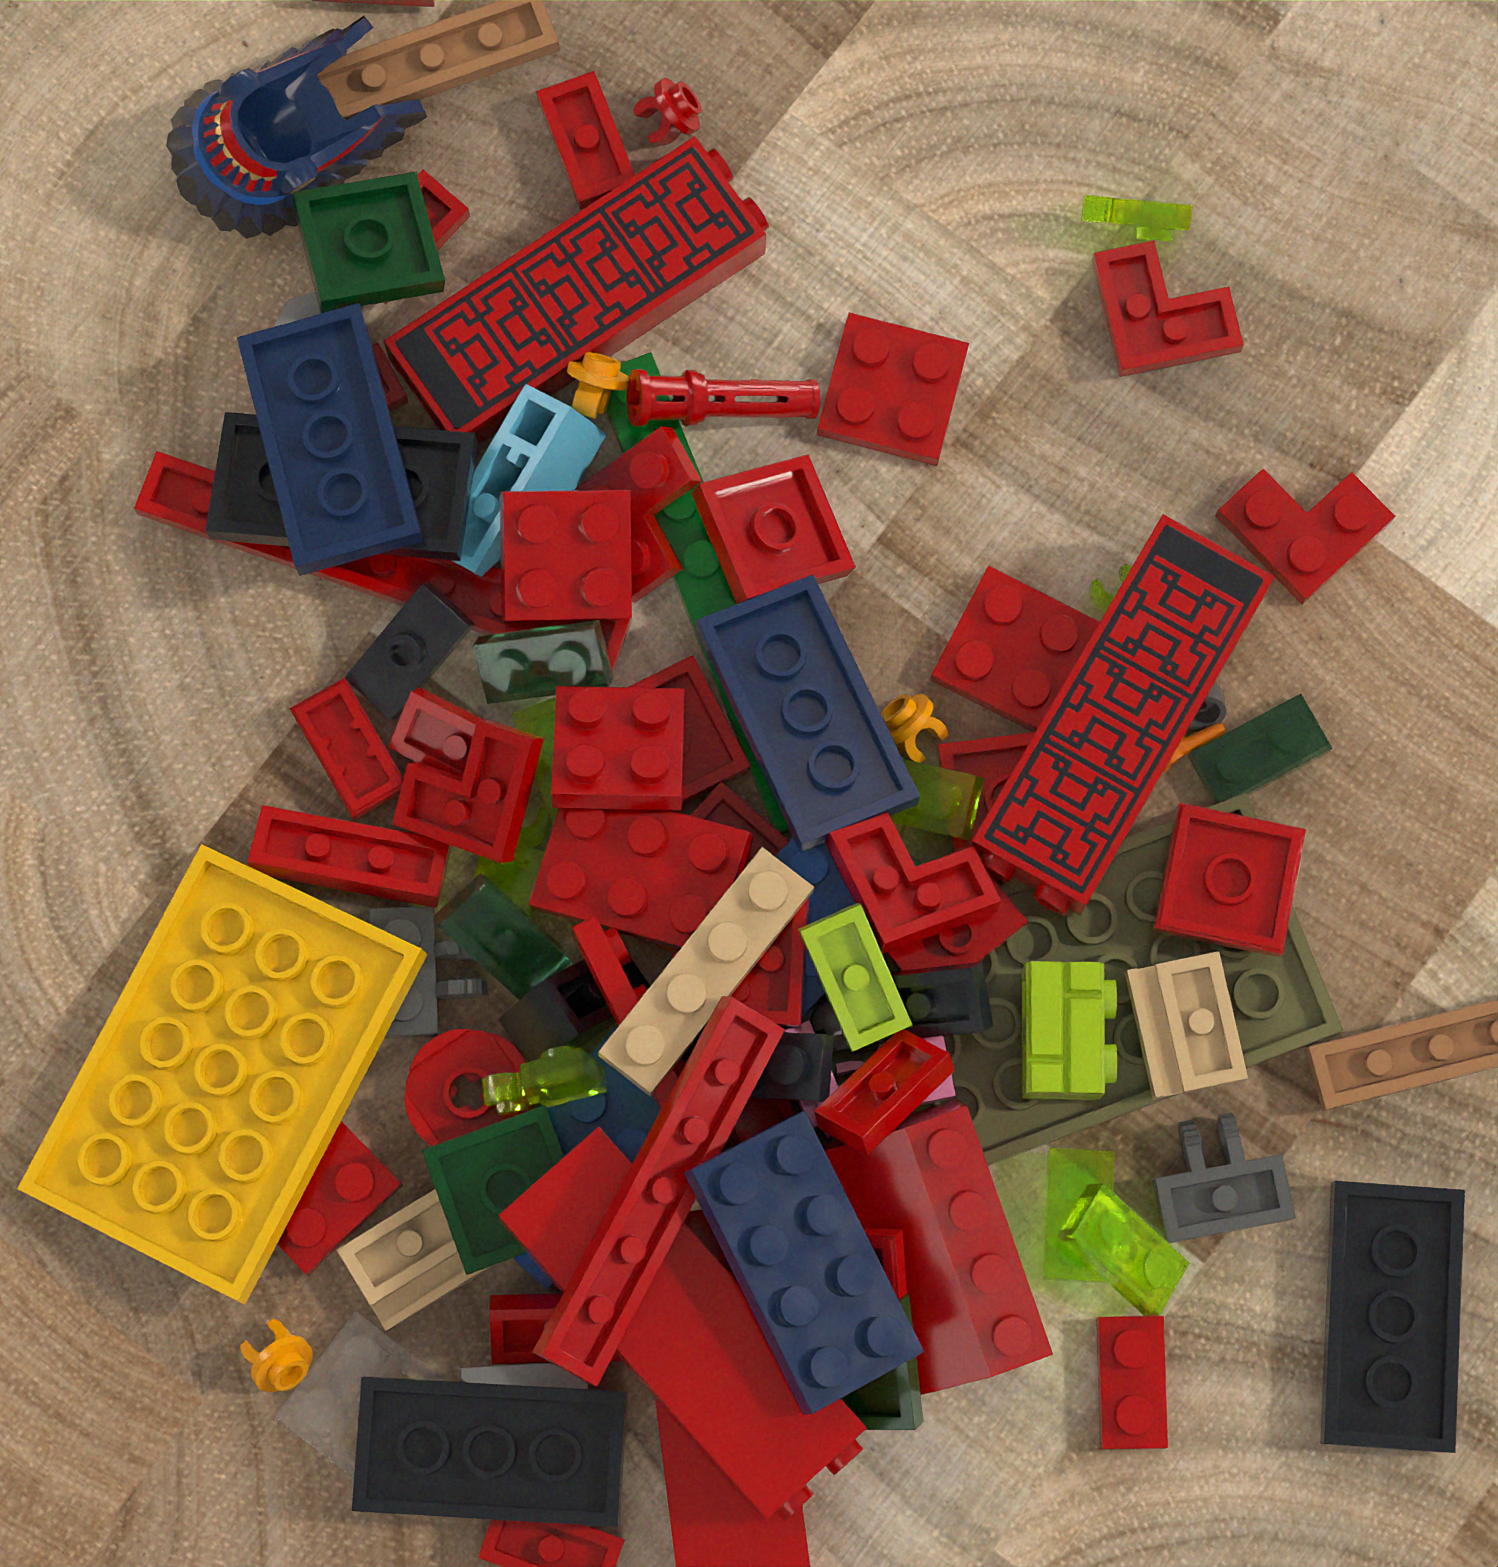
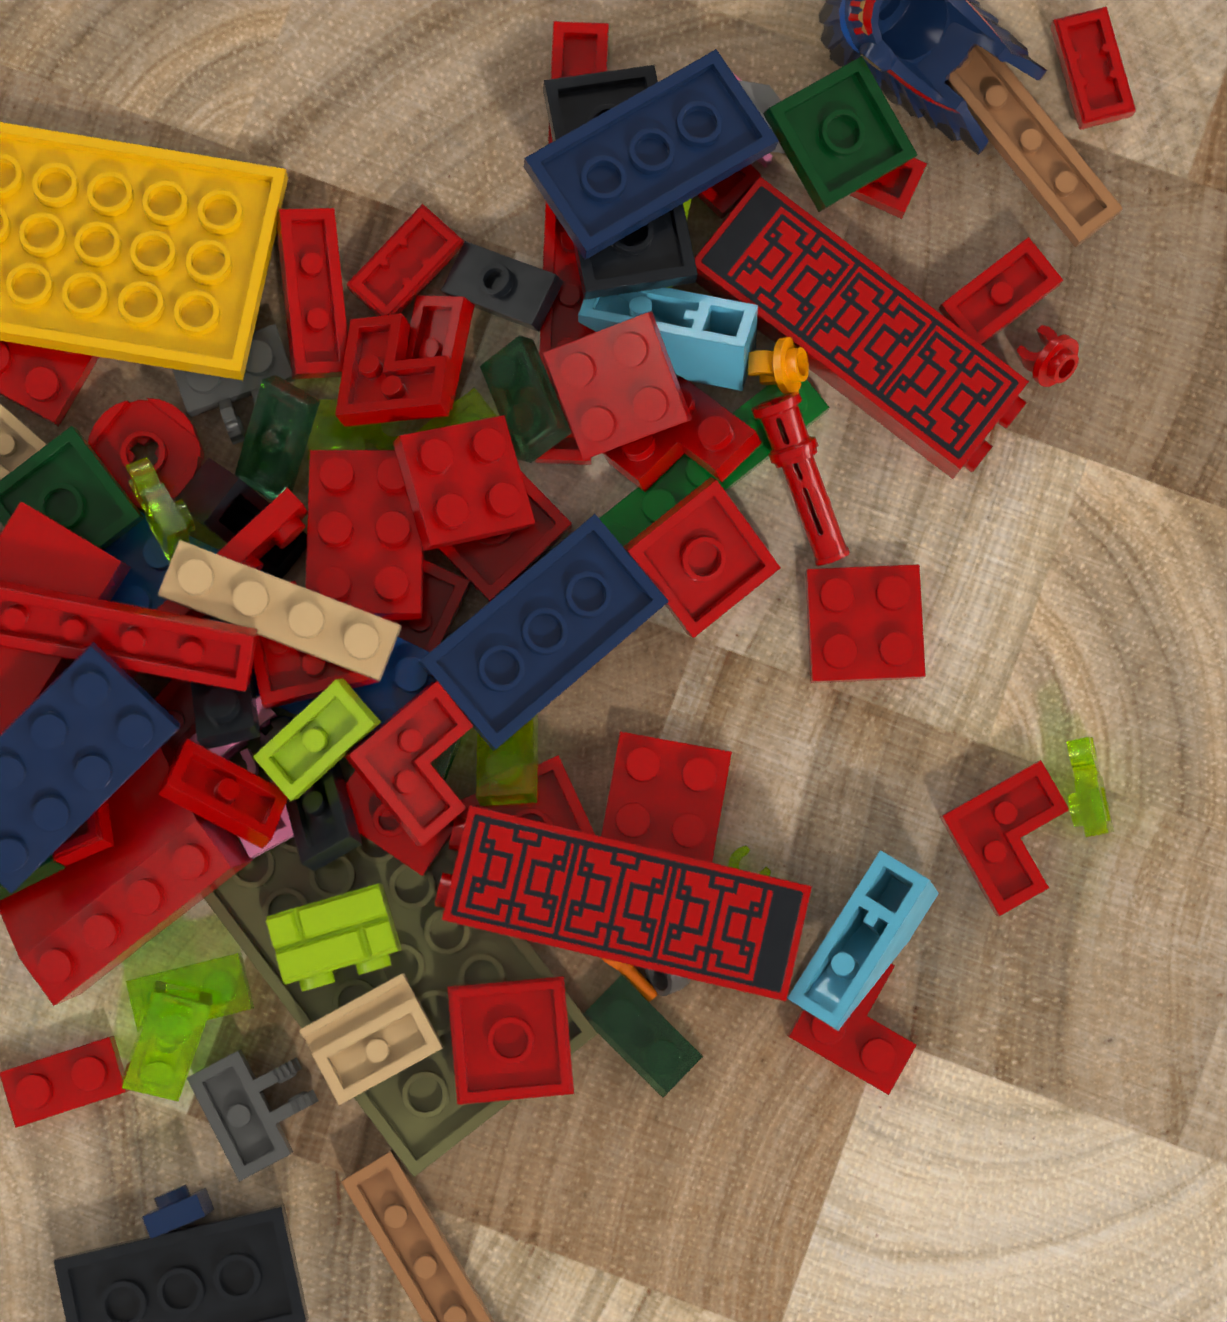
camera: 75 degrees right, 5 degrees up
(908, 716) = (573, 720): light orange plate -> none
(1231, 485) = (864, 940): none -> medium azure slope
(1307, 1294) = (177, 1209): none -> dark blue plate

